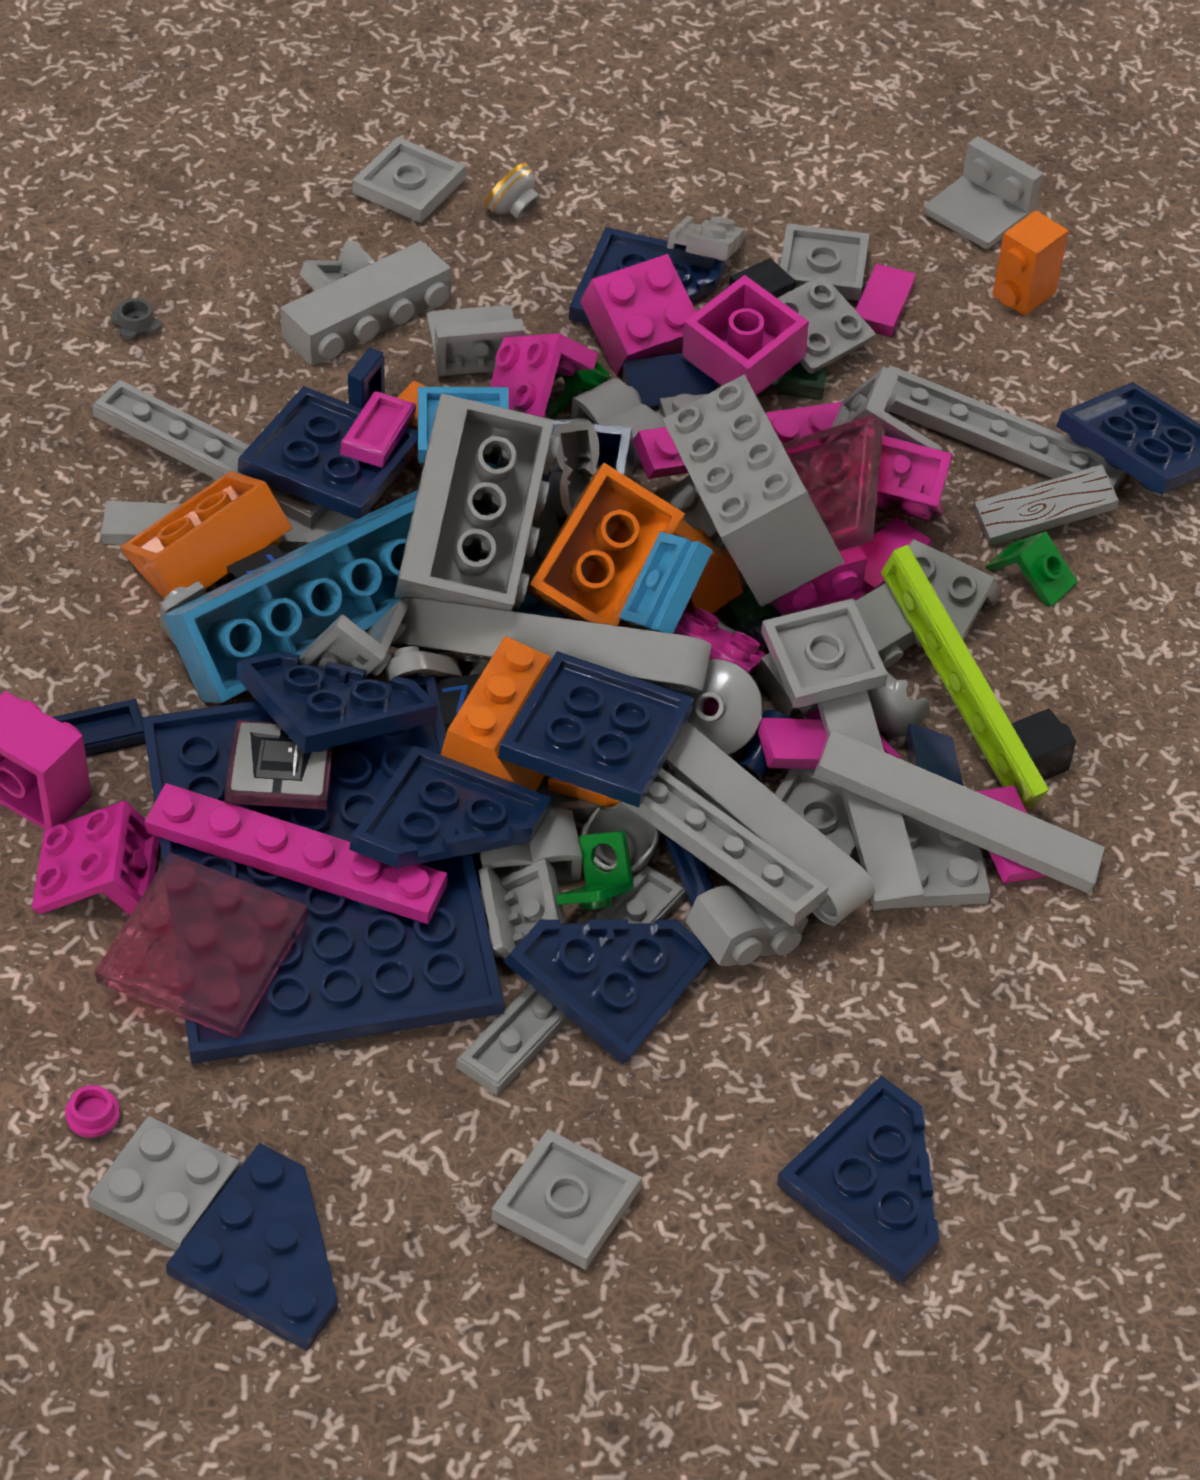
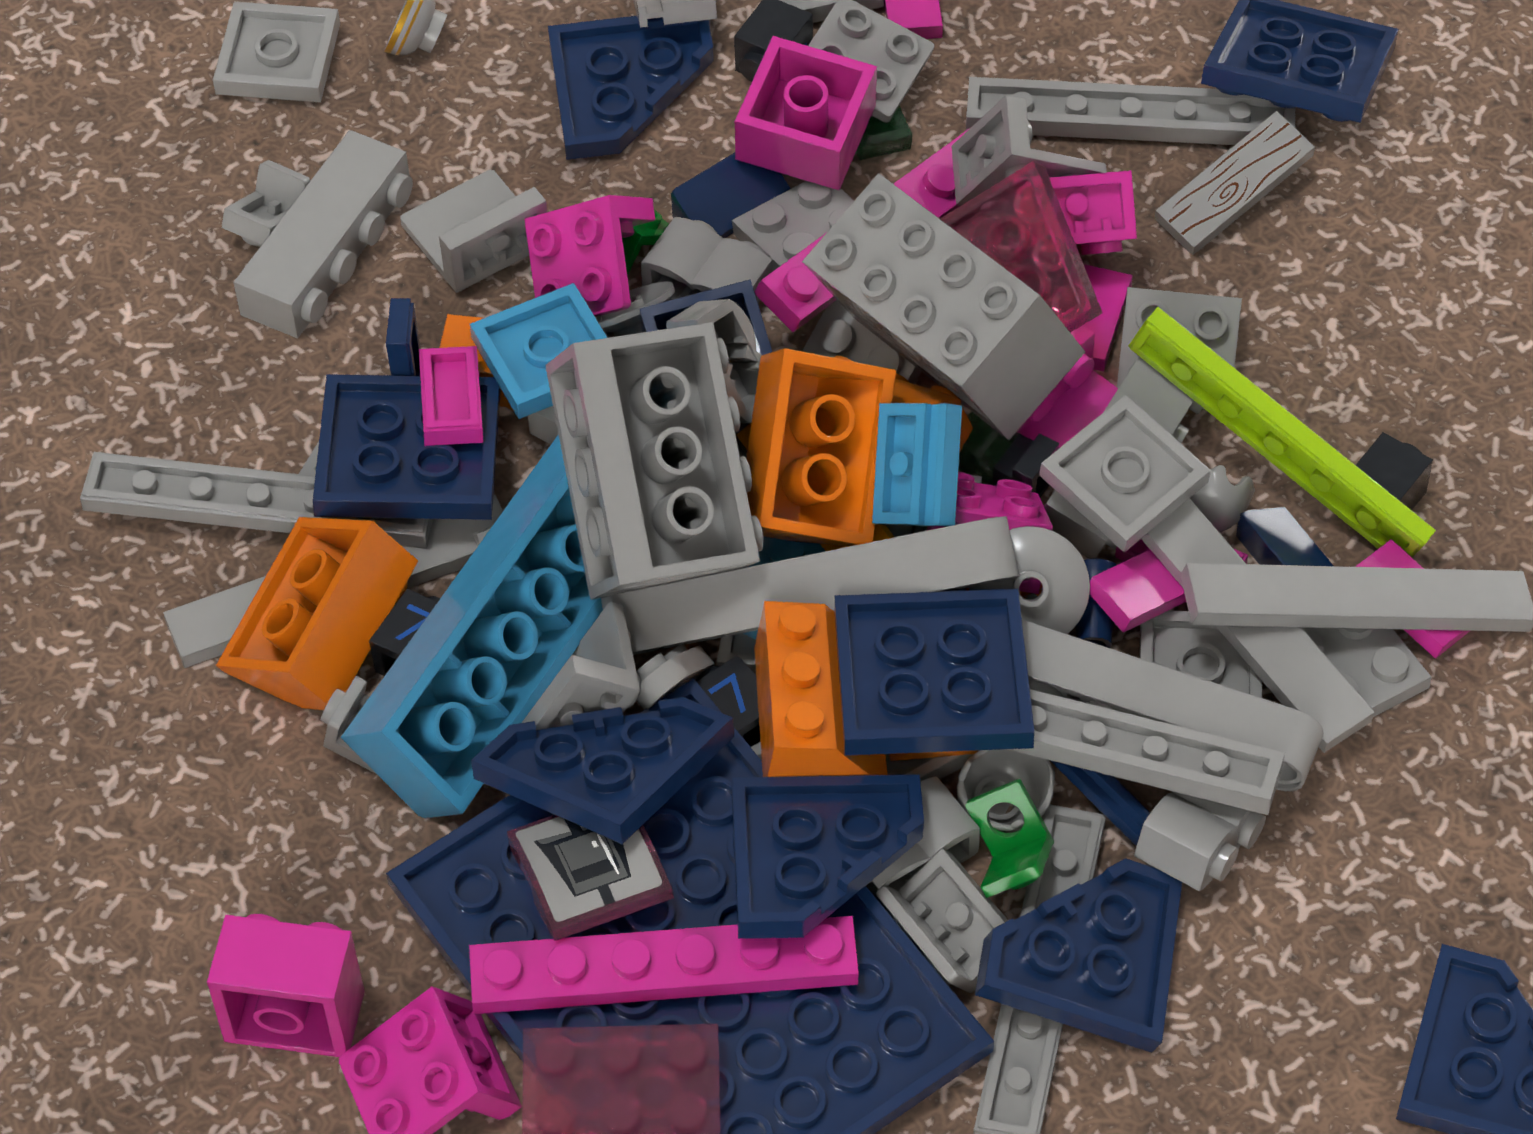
camera: 20 degrees left, 5 degrees up
(108, 726) = (335, 895): dark blue tile -> none
(135, 318) = (54, 349): dark grey plate -> none
(638, 311) = (660, 124): dark pink brick -> none
(1040, 564) = (1264, 254): green bracket -> none

